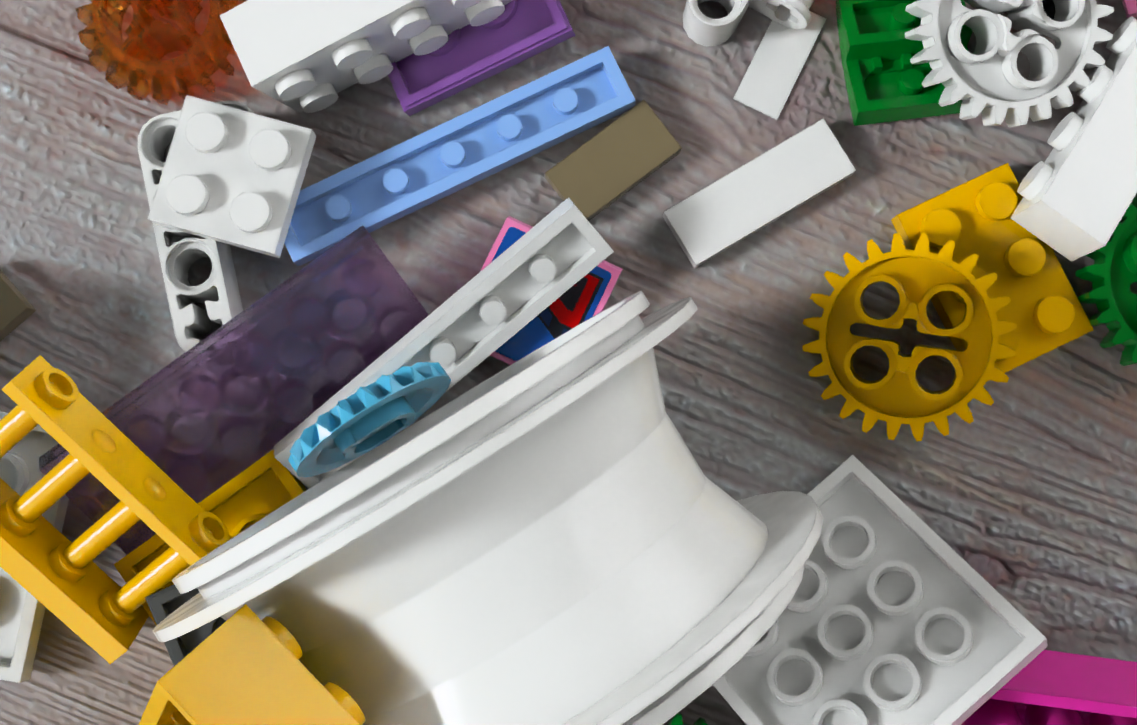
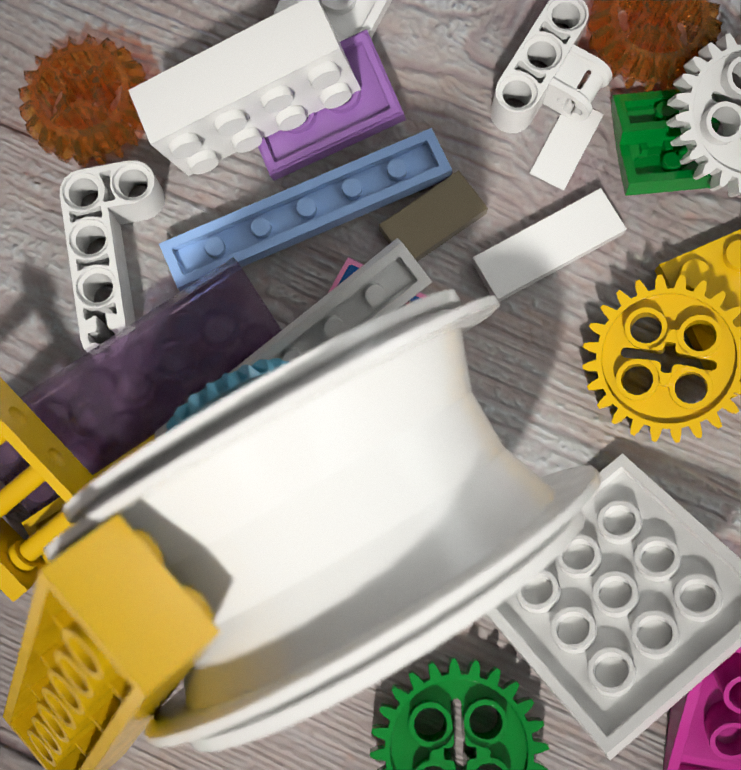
camera: 10 degrees right, 5 degrees down
(232, 176) = (132, 217): white plate -> none

